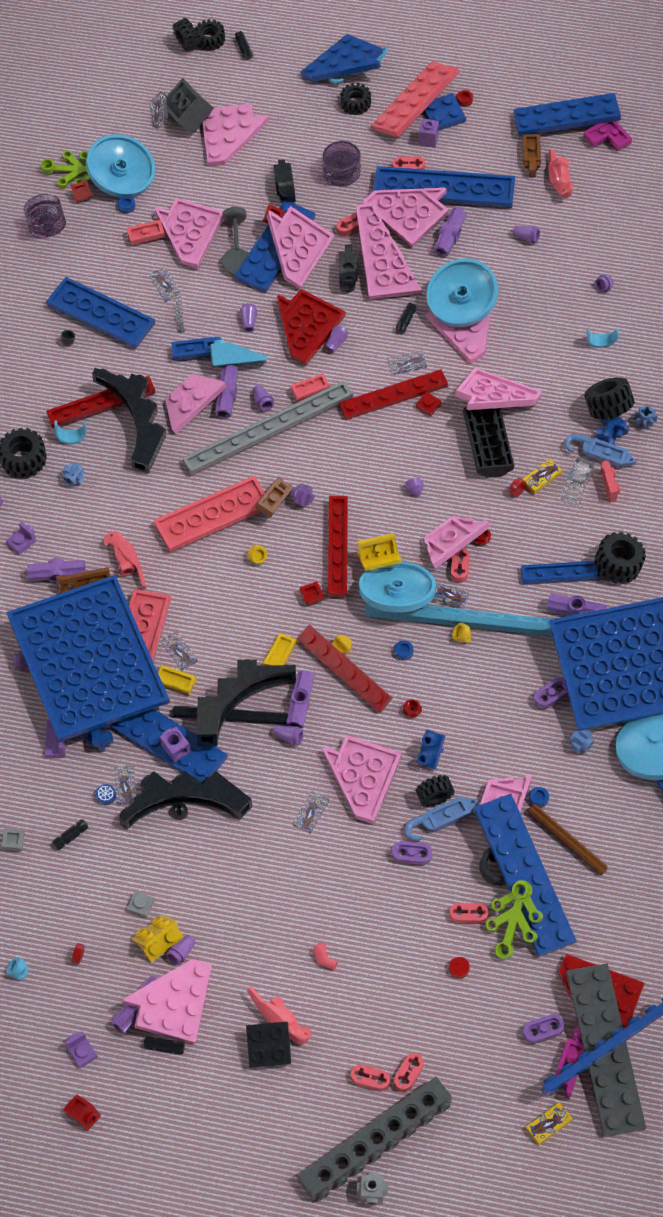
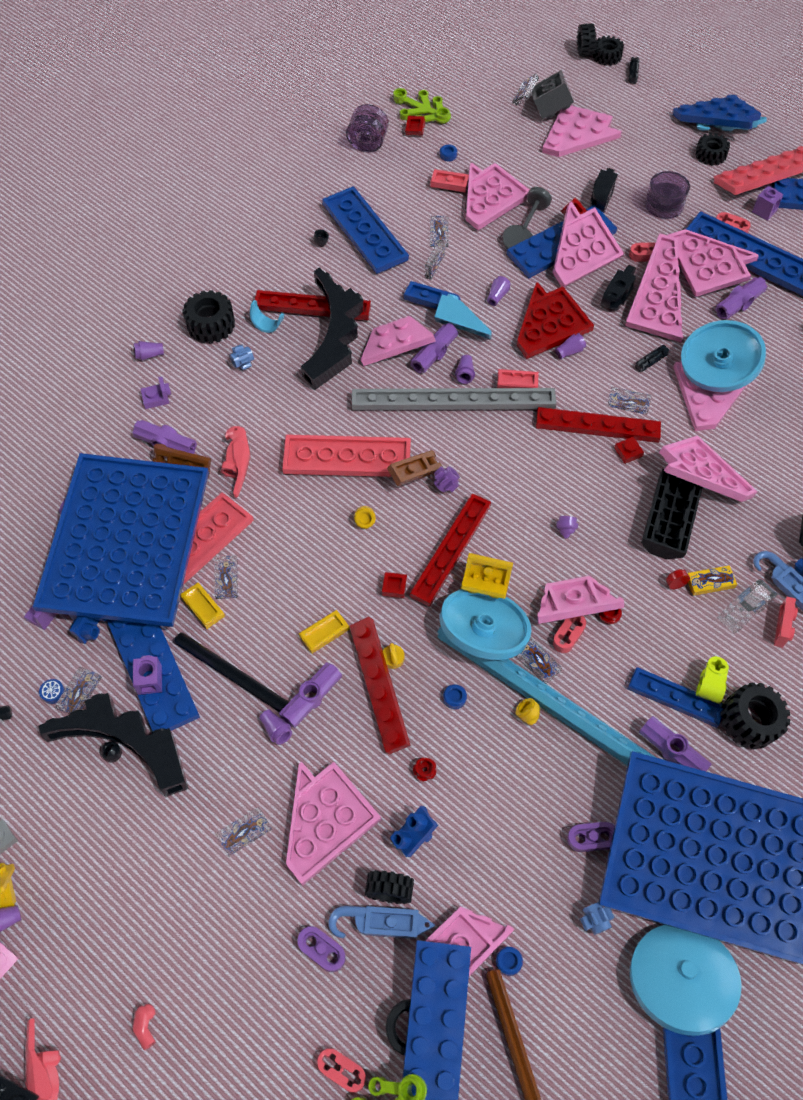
camera: 25 degrees right, 0 degrees up
(120, 165) = (461, 117): medium azure dish -> none
(231, 691) = (209, 660): black arch -> none
(579, 547) = (713, 680): none -> neon yellow piece

